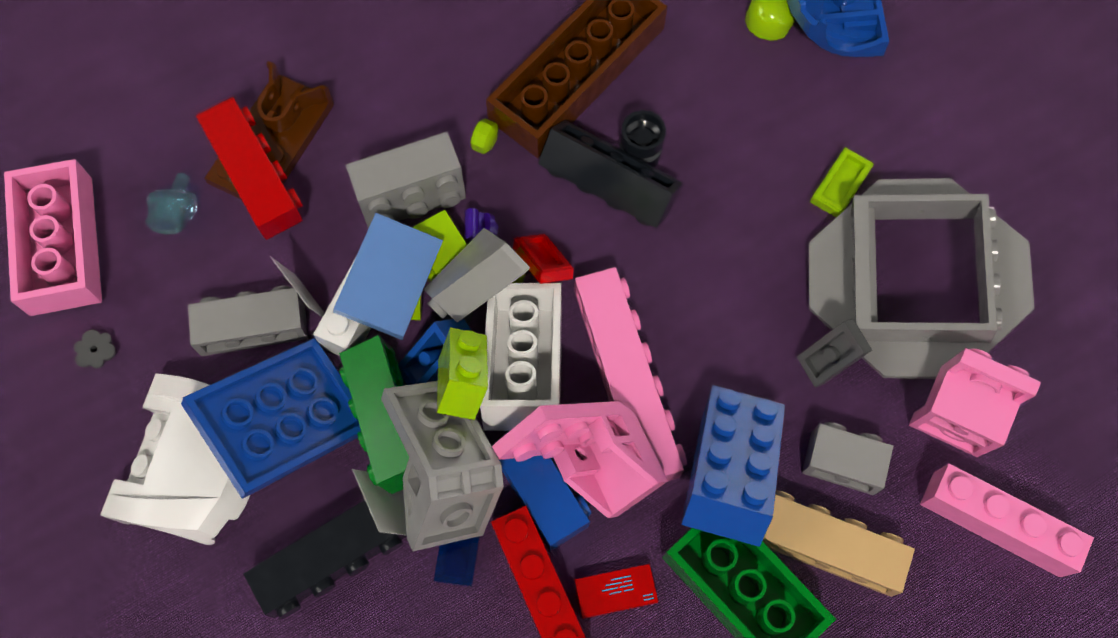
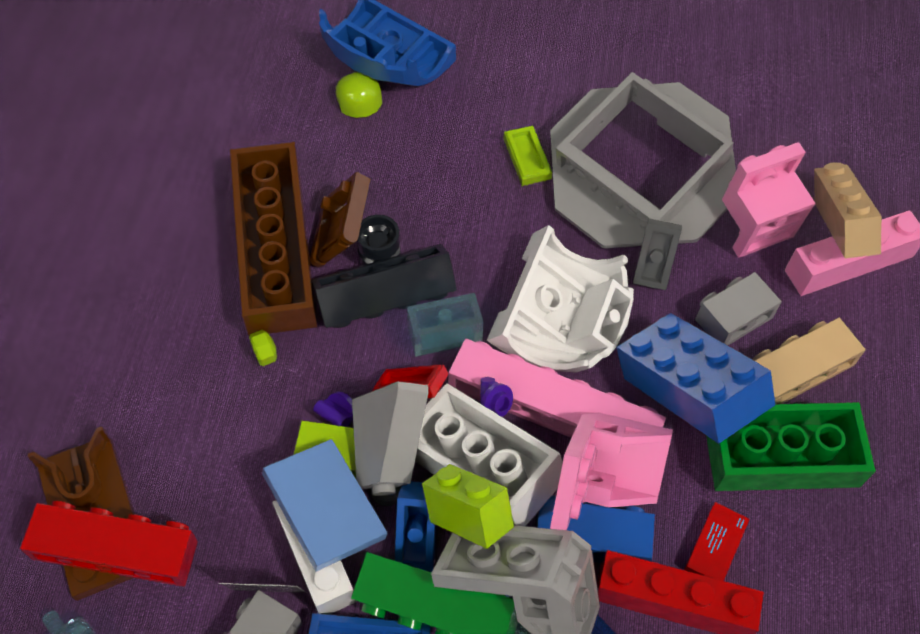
camera: 50 degrees left, 10 degrees down
(408, 180) = (250, 430): light grey brick -> none
(580, 328) = (495, 396): none -> dark purple plate
(616, 242) = (444, 324): none -> clear light blue brick
(635, 95) = (337, 223): none -> reddish brown container
(718, 318) = (564, 307): none -> white piece
(1027, 479) = (847, 211): none -> tan brick

